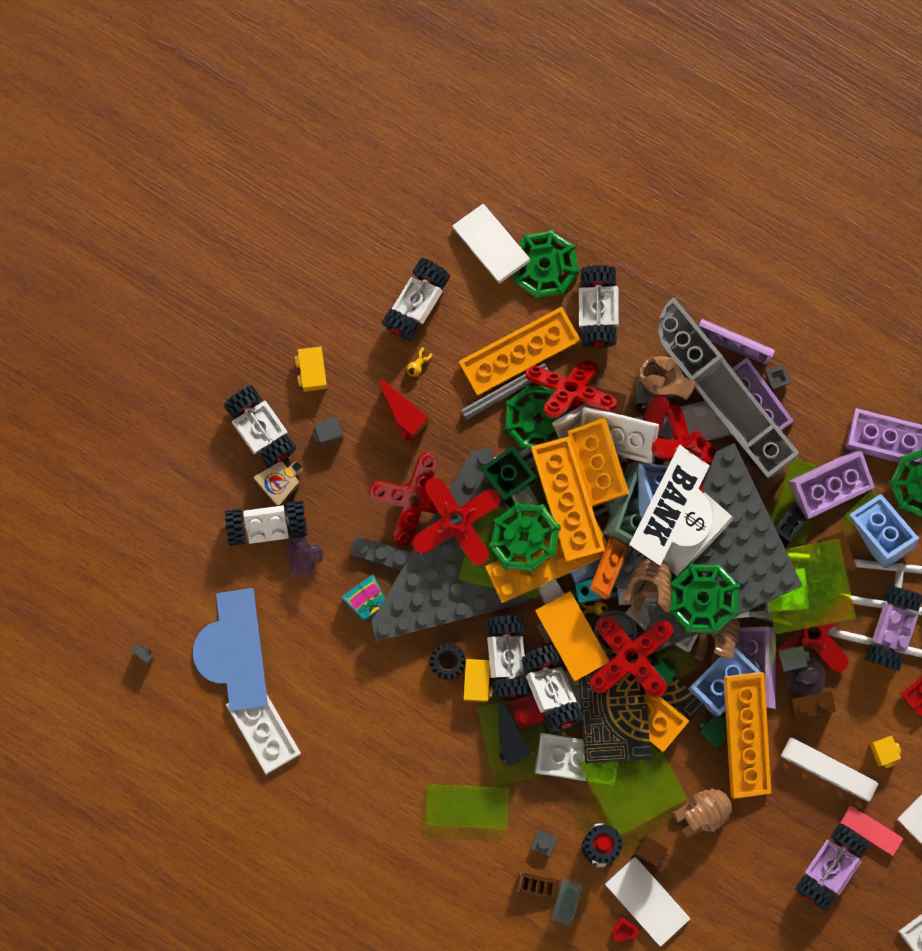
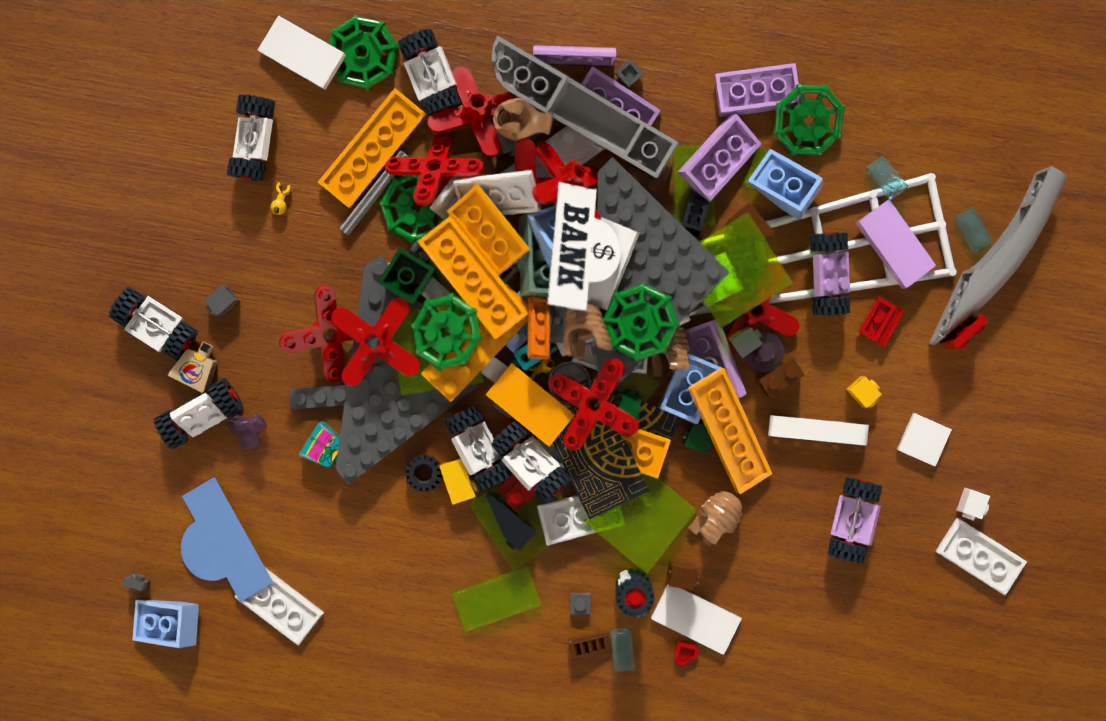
camera: 20 degrees left, 10 degrees up
(153, 702) = (165, 622): none -> light blue slope
(312, 369) = (180, 246): yellow brick -> none
(407, 417) = (286, 257): red slope -> none
(626, 354) = (467, 114): none -> red piece
(871, 830) = (877, 470): coral tile -> none

